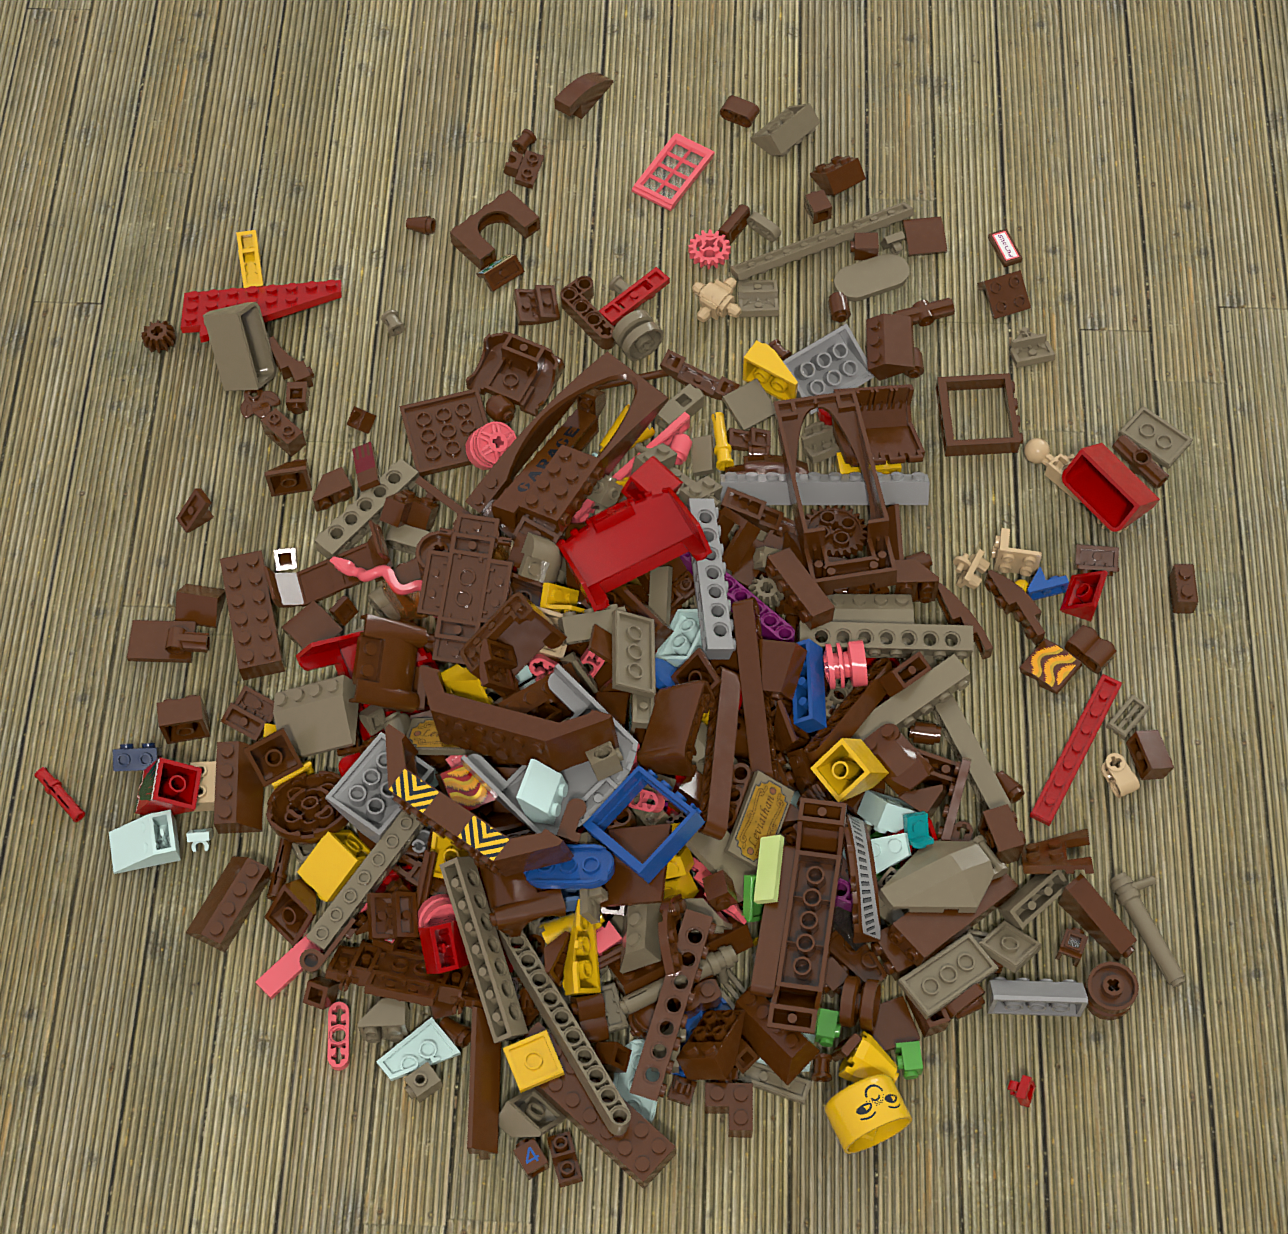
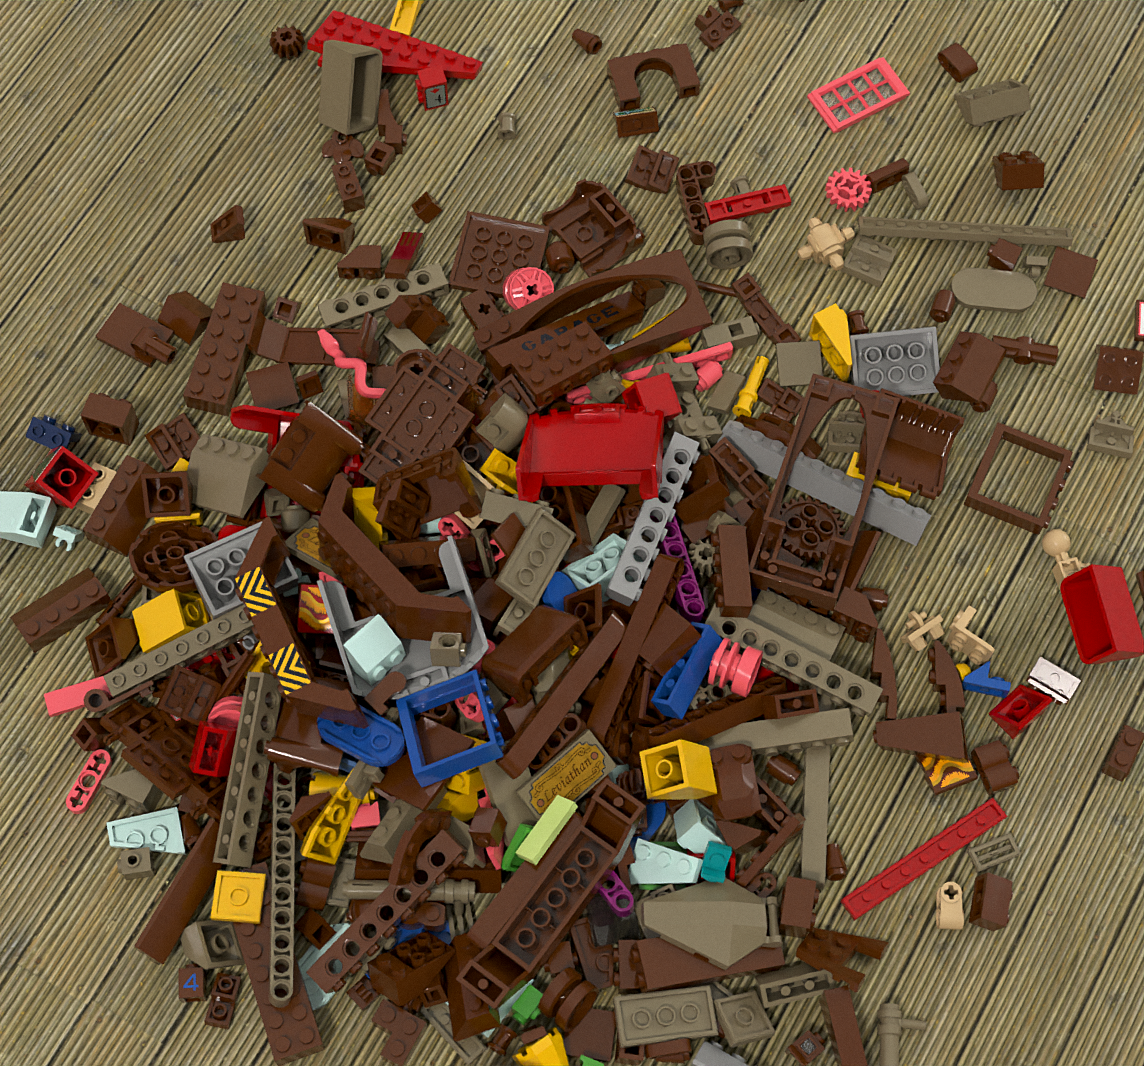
camera: 25 degrees right, 5 degrees up
(311, 318) = (432, 88): none -> red brick
(436, 495) = (454, 313): reddish brown hinge -> none
(458, 482) = (480, 309): none -> reddish brown brick
(818, 206) = (980, 194): reddish brown brick -> none
(862, 881) = (633, 877): windscreen -> none
(1024, 649) = (926, 736): none -> reddish brown slope

